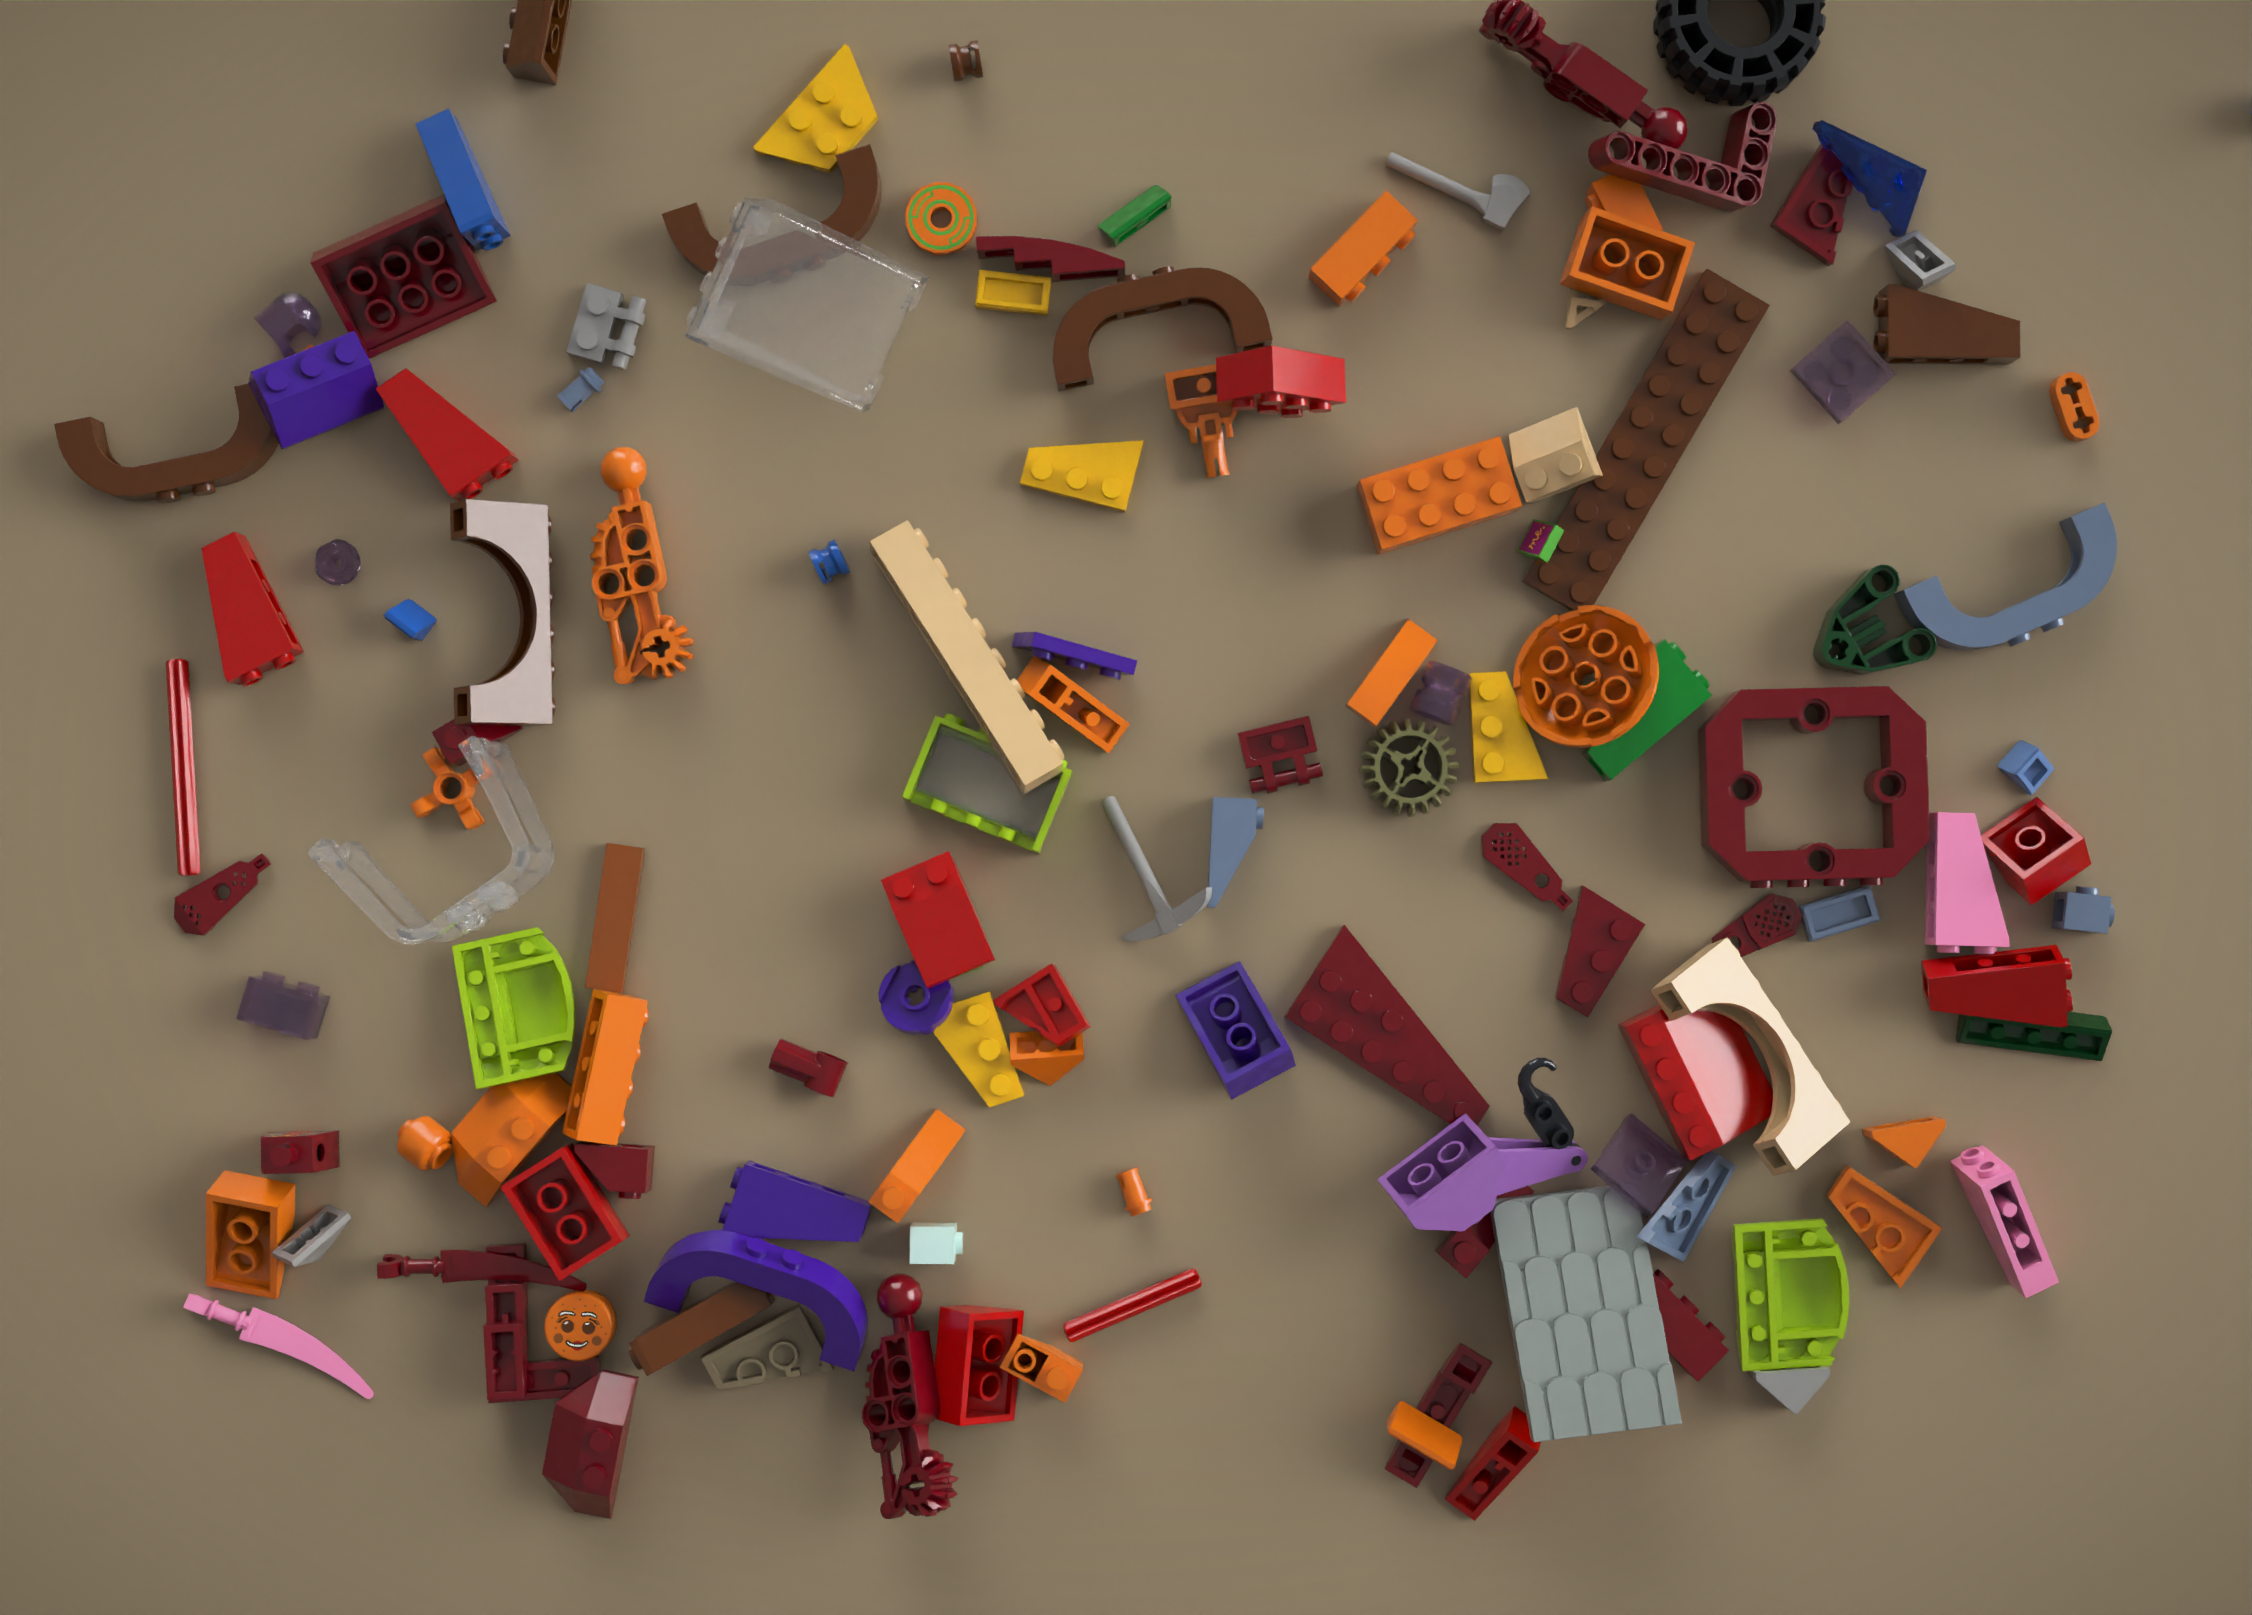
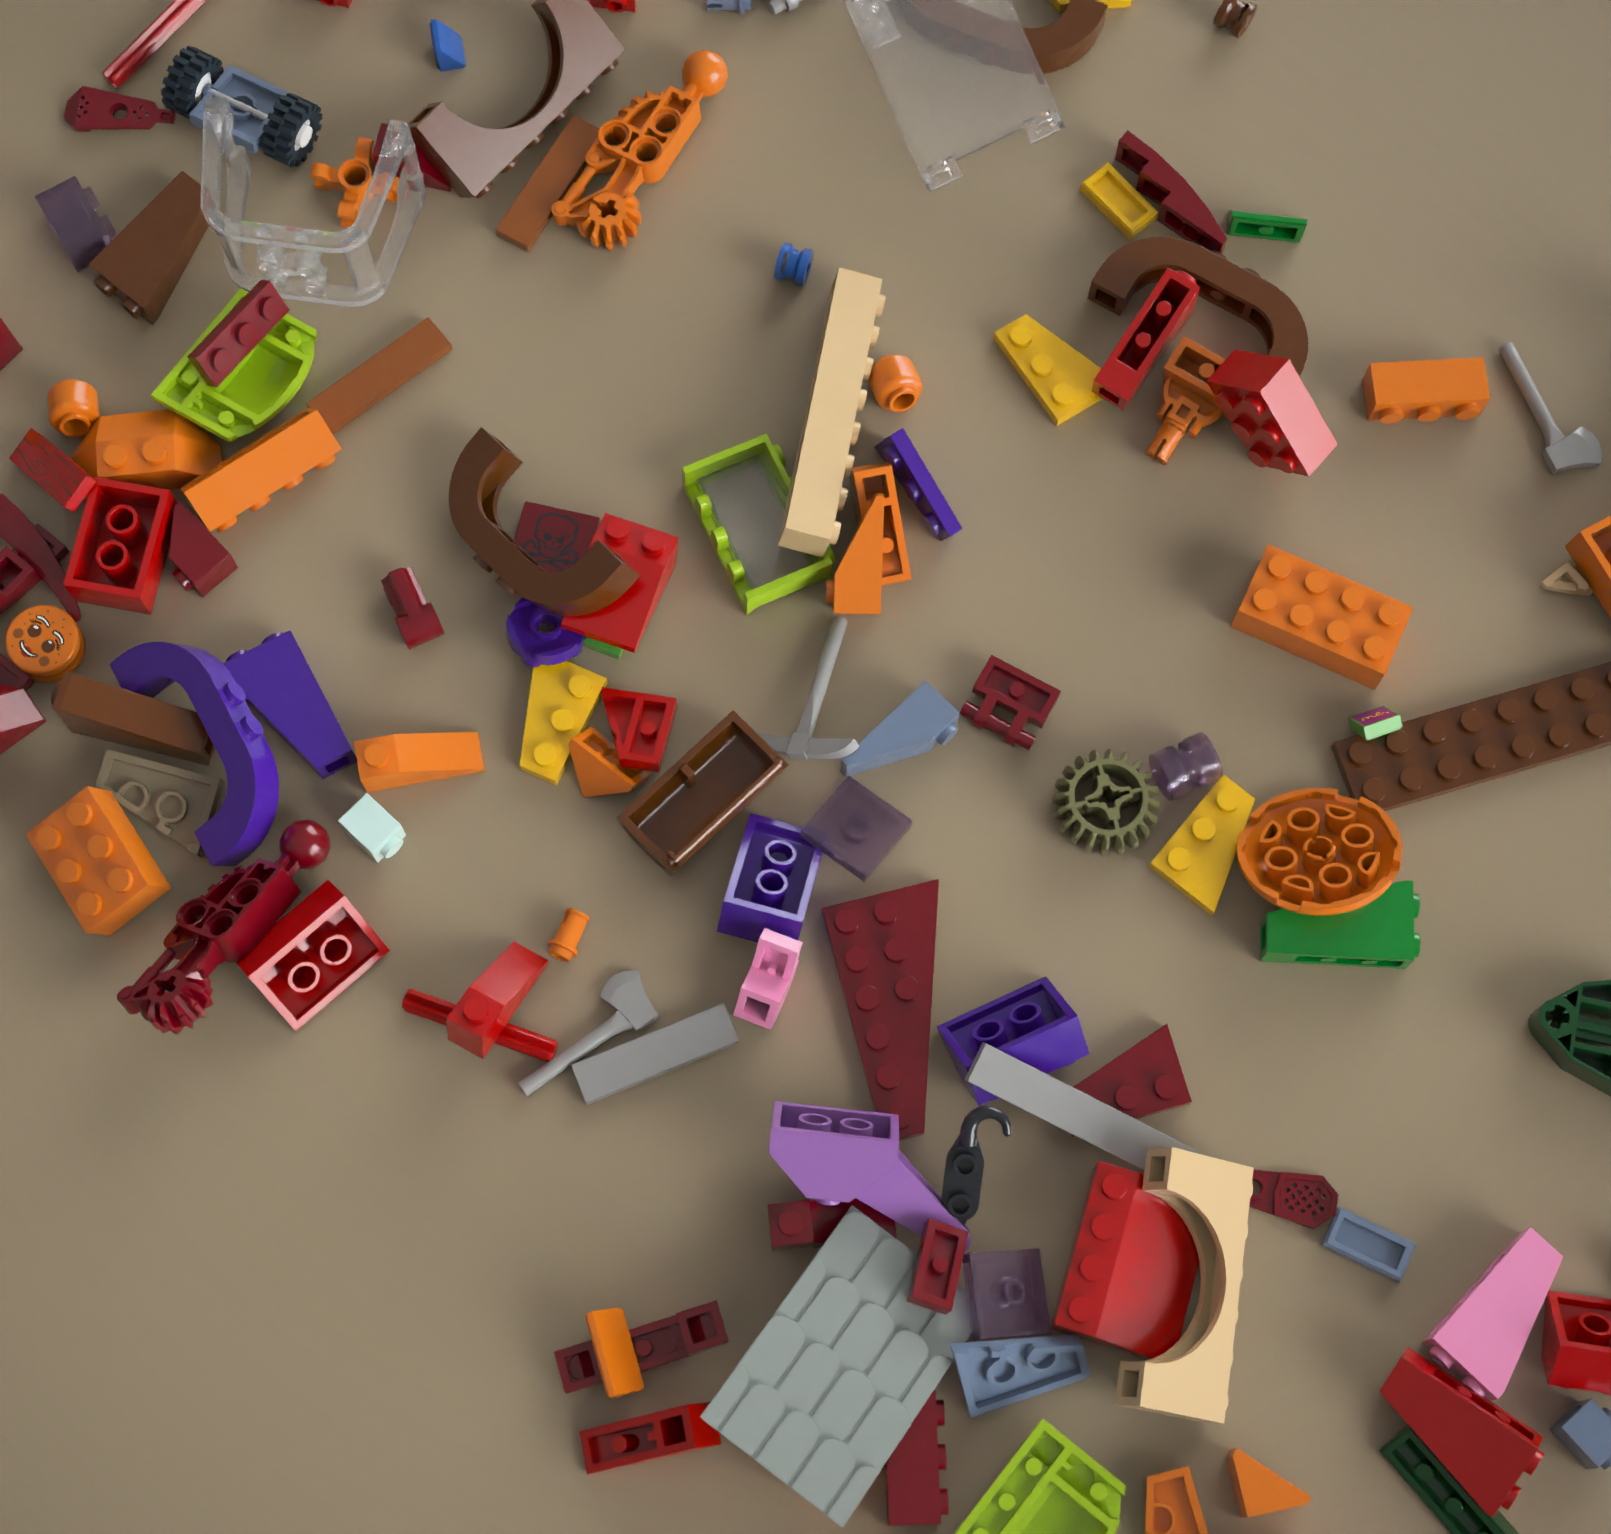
camera: 40 degrees right, 15 degrees down
(313, 809) = (262, 113): none -> plate
(360, 975) = (153, 250): none -> reddish brown slope
(461, 1204) = (52, 470): none -> red tile
(492, 987) = (238, 333): none -> dark red plate
(591, 657) = (548, 184): none -> dark orange tile
(775, 951) = (473, 498): none -> reddish brown arch
(775, 1438) = (98, 861): none -> orange brick
(859, 929) = (555, 535): none -> dark red tile
(939, 197) = (1117, 88): orange tile -> none
(986, 588) = (895, 383): none -> orange head
(1043, 1366) = (360, 1002): orange slope -> none
(1091, 755) = (859, 571): none -> orange slope
(1129, 1279) = (494, 999): none -> red slope
(1135, 1015) = (701, 793): none -> reddish brown container
(1137, 395) = (1147, 338): none -> red slope
(1224, 1200) = (633, 1011): none -> light grey piece
(1257, 941) = (856, 828): none -> clear purple plate
(1265, 1216) = (655, 1054): none -> light grey tile
(1297, 1102) = (768, 979): none -> bright pink brick
(1391, 673) = (1156, 717): orange slope -> none
(1493, 990) = (1026, 1024): none -> dark purple slope
(1527, 867) = (1132, 970): dark red piece -> none
(1553, 456) = (1443, 668): tan slope -> none
(1578, 1007) = (1067, 1107): none -> light grey tile
(1583, 1192) = (937, 1266): none -> dark red plate
(1902, 760) = (1516, 1064): dark red panel -> none

